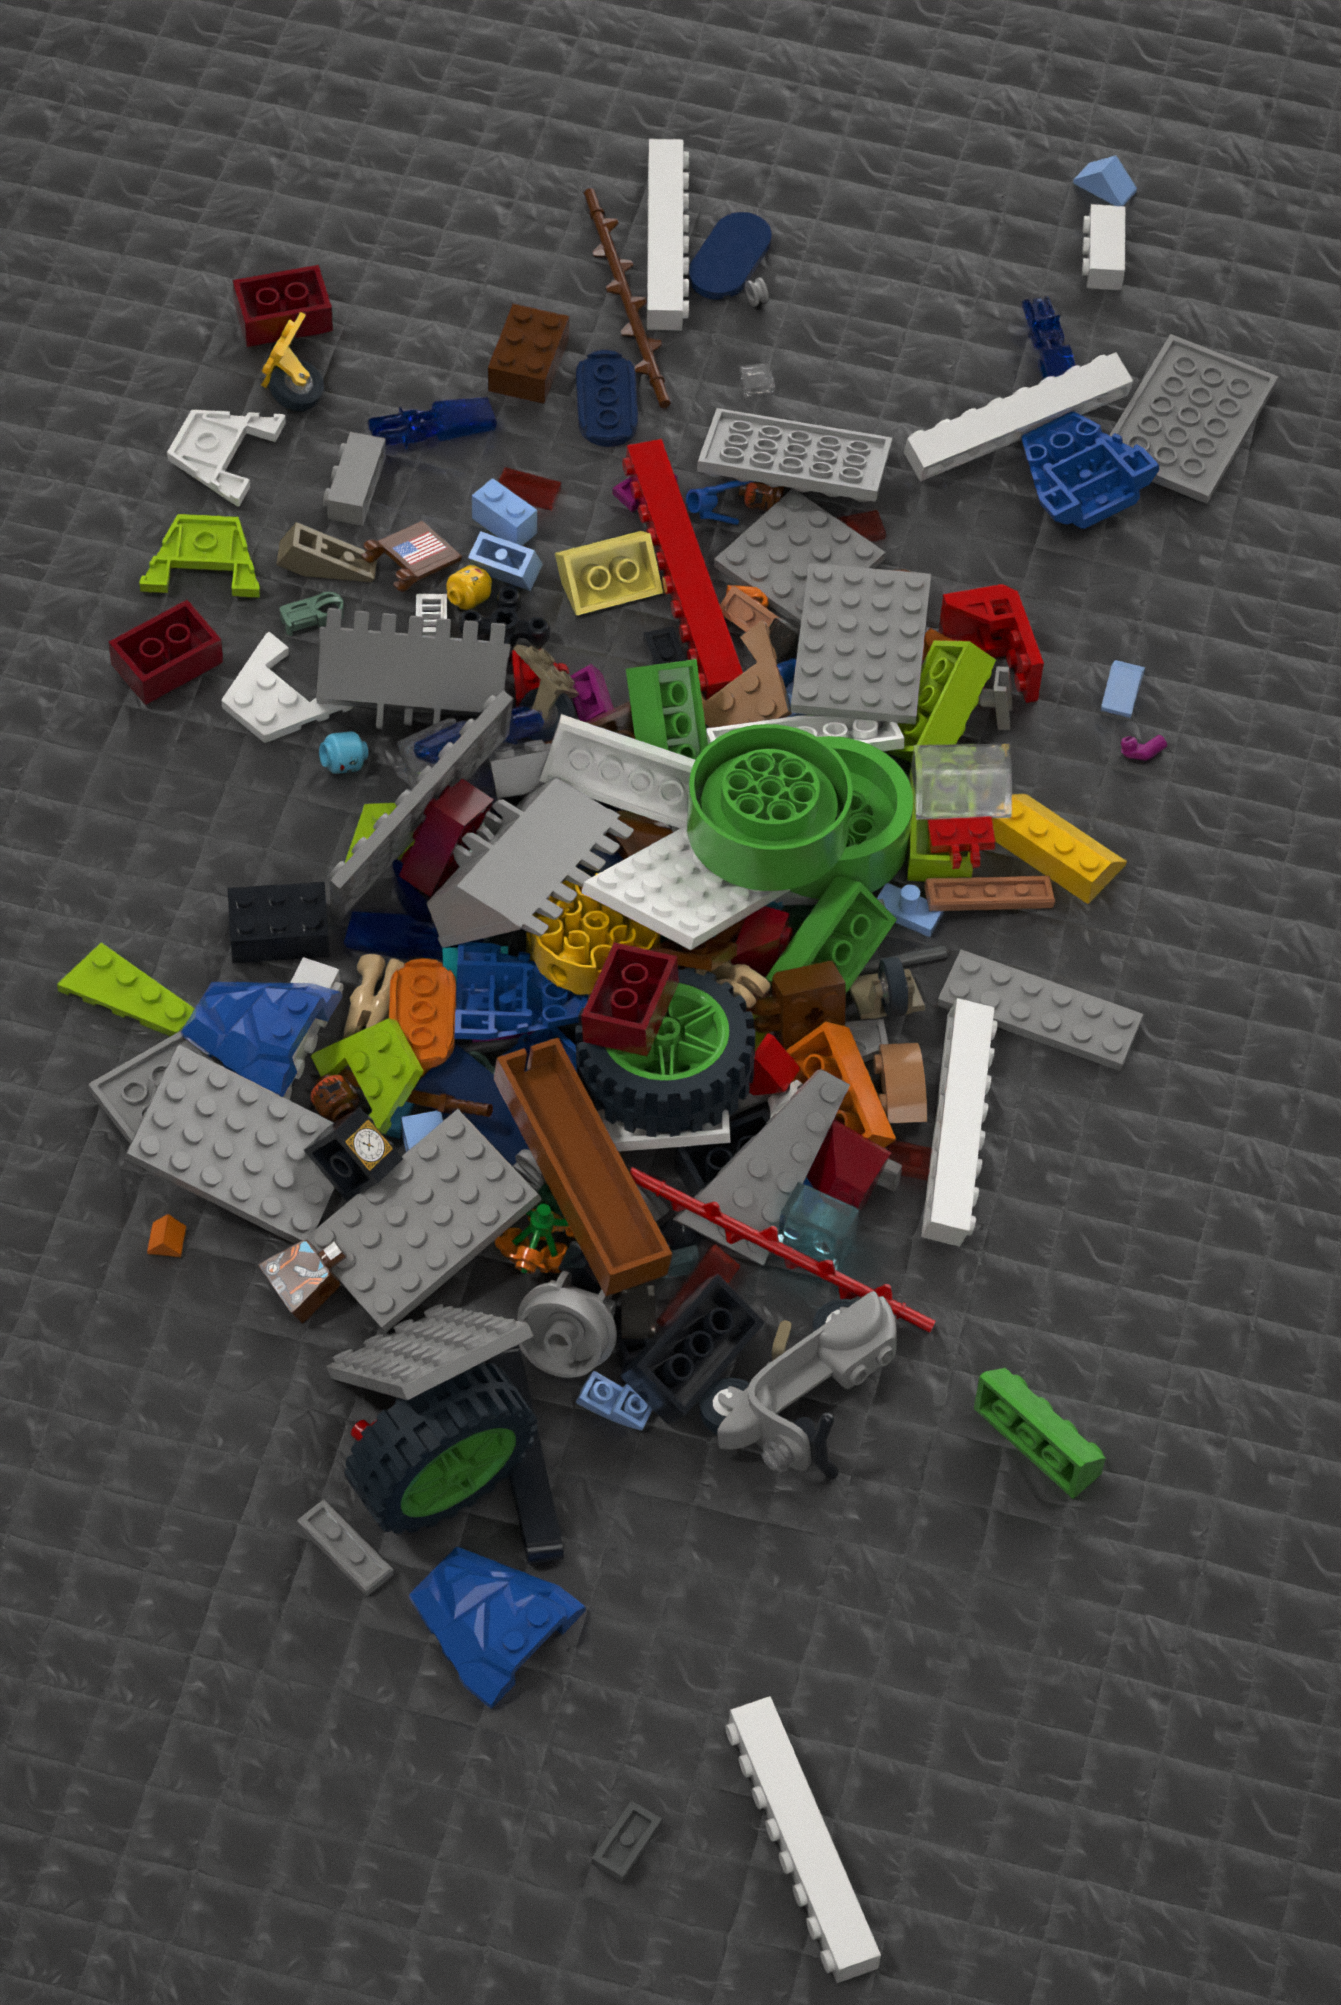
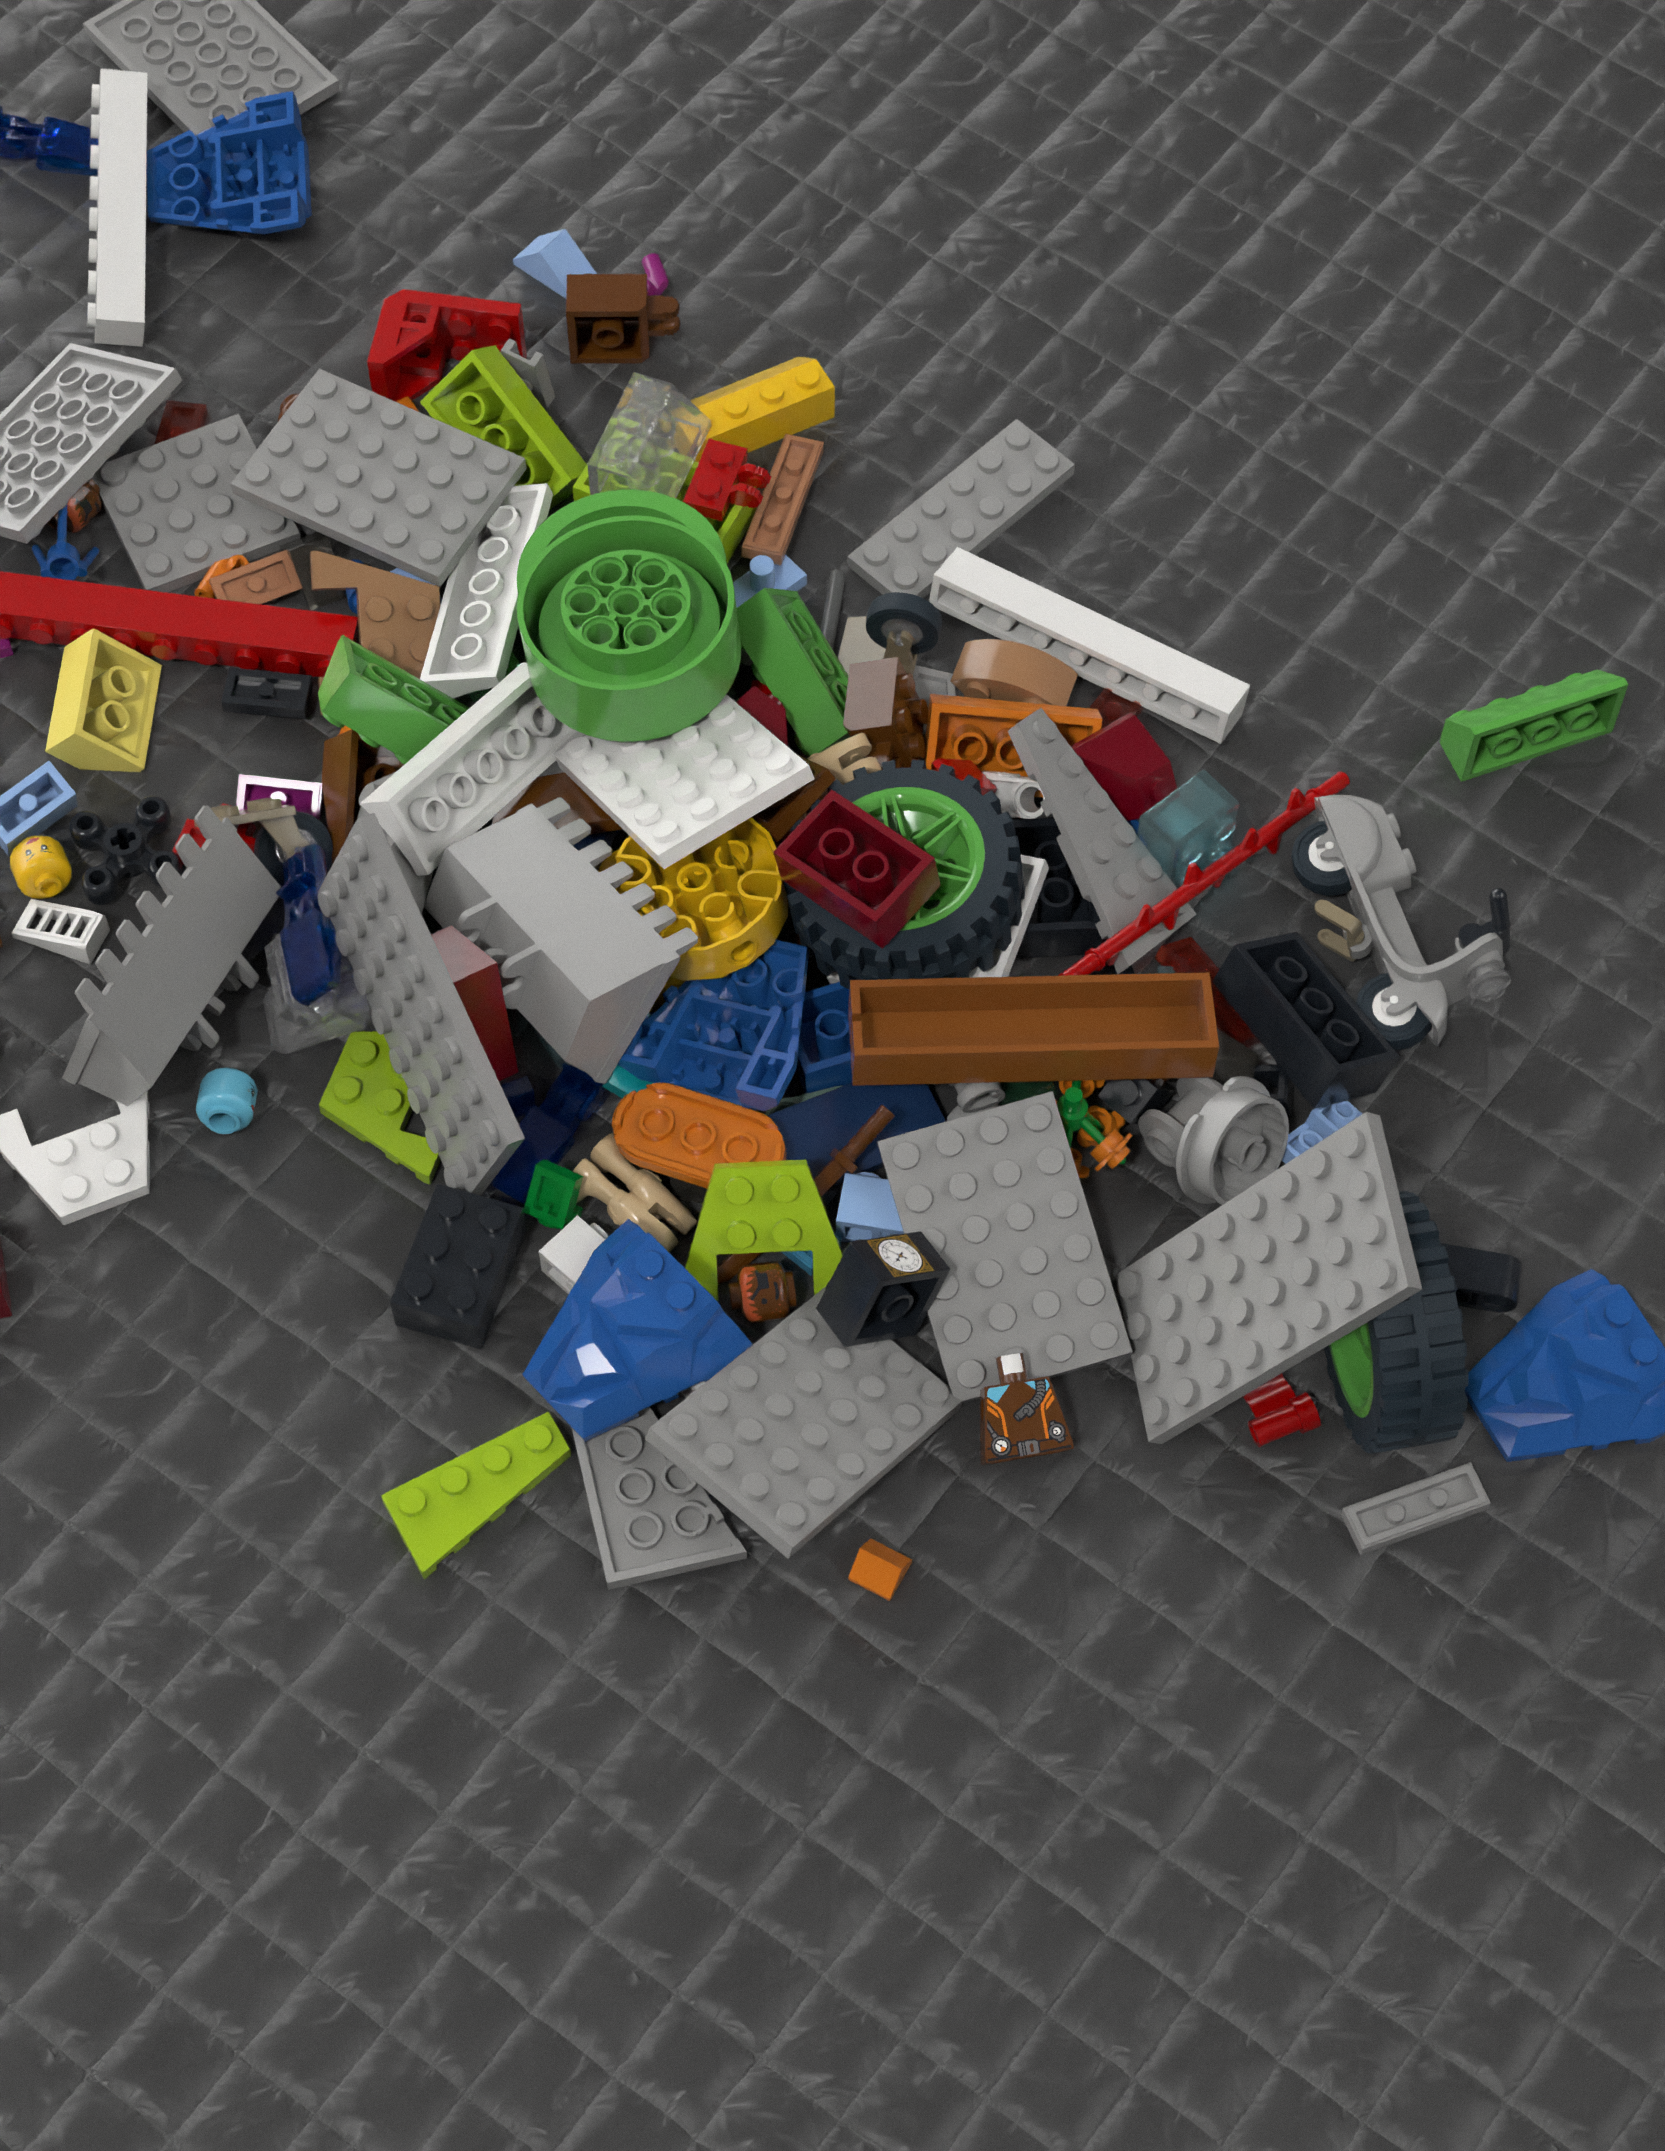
camera: 65 degrees left, 5 degrees up
(349, 952) = (553, 1195): none -> green bracket
(1081, 729) = (614, 318): none -> reddish brown hinge

